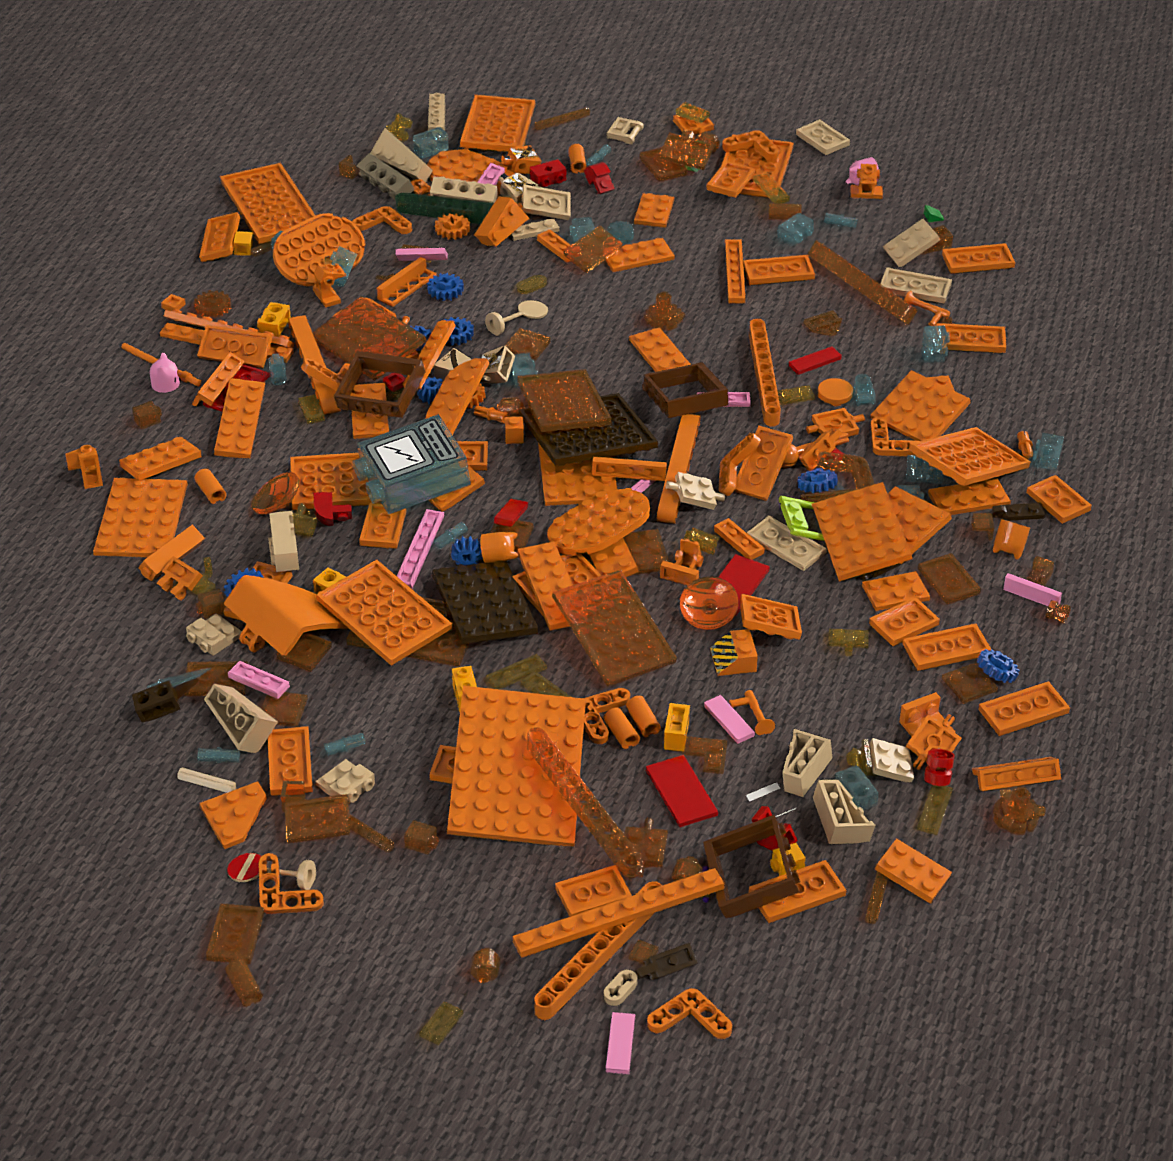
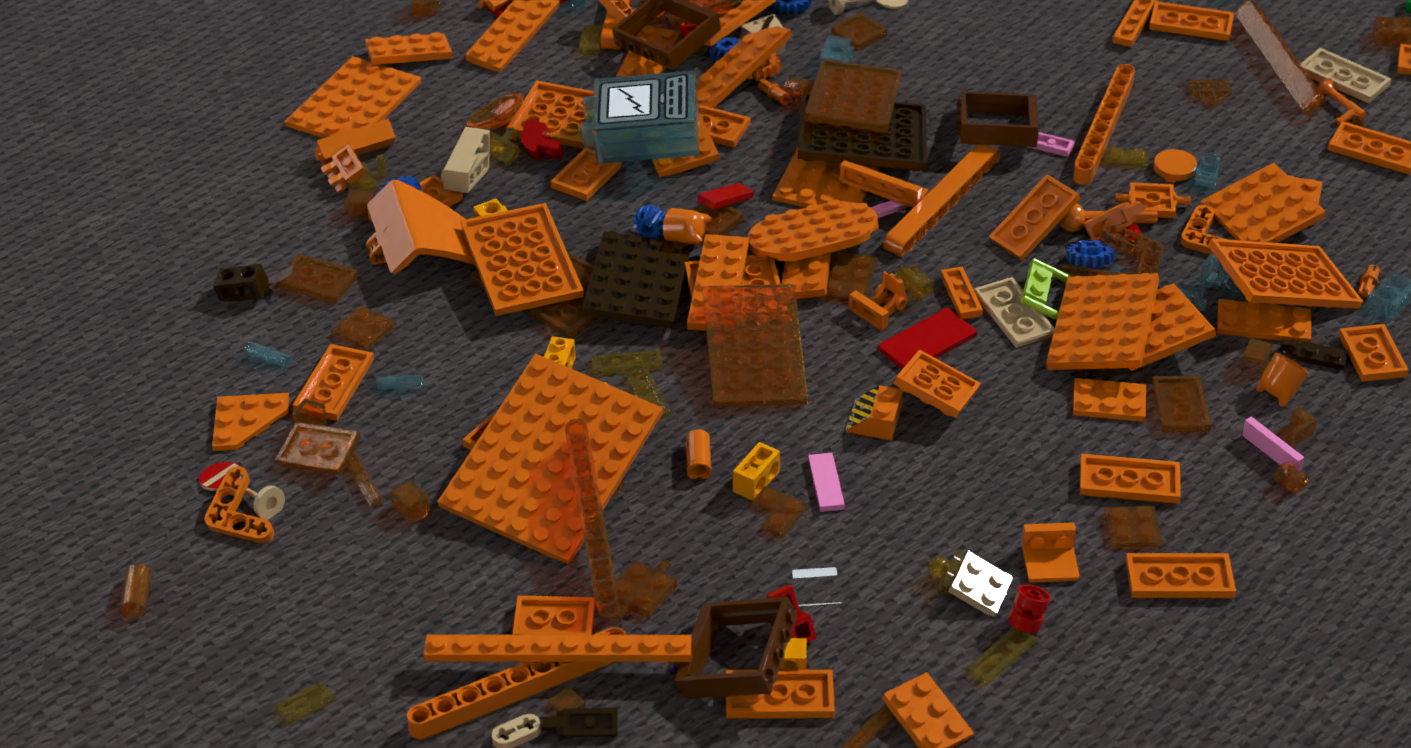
camera: 25 degrees right, 0 degrees up
(86, 460) = (334, 30): orange tile -> none
(179, 679) = (276, 267): clear light blue bar -> none
(206, 780) = (240, 376): tan axle -> none
(210, 486) = (438, 88): orange pin -> none
(212, 634) = (343, 234): tan plate -> none
(235, 933) = (162, 538): clear orange plate -> none
(240, 718) = (309, 323): tan wedge -> none
(258, 679) = (354, 291): bright pink tile -> none
(306, 652) = (423, 276): clear orange plate -> none
(347, 779) = (376, 421): tan plate -> none
(420, 547) = (609, 208): bright pink tile -> none
(450, 535) = (656, 200): clear light blue axle -> none
(485, 965) = (387, 657): clear orange head -> none
(499, 365) = (807, 42): tan torso -> none
(514, 430) = (785, 113): orange brick -> none
(594, 709) = (684, 424): orange beam -> none
(643, 716) = (730, 447): orange pin -> none
(658, 350) = (1000, 71): orange plate -> none
(664, 313) = (1028, 34): clear orange piece -> none
(681, 791) = (722, 542): red tile -> none
(685, 868) = (667, 625): clear orange head -> none
(695, 490) = (941, 227): tan plate -> none
(705, 594) = (876, 340): clear orange dish -> none
(729, 463) = (1003, 207): orange beam -> none
(764, 725) = (858, 501): orange piece -> none
(805, 761) = (877, 554): tan wedge -> none
(815, 360) = (1173, 126): red tile -> none
(839, 815) = (880, 625): tan wedge -> none
(848, 639) = (1018, 436): clear yellow plate -> none
(858, 786) = (918, 603): clear light blue brick -> none
(904, 621) = (1097, 435): orange plate -> none
(911, 243) = (1364, 27): tan plate -> none
(932, 735) = (1045, 571): orange plate -> none
(934, 344) = (1321, 142): clear light blue brick -> none
(998, 666) = (1175, 517): blue gear -> none
(1017, 773) = (1125, 647): orange fence -> none
(1017, 808) = (1095, 687): clear orange piece -> none

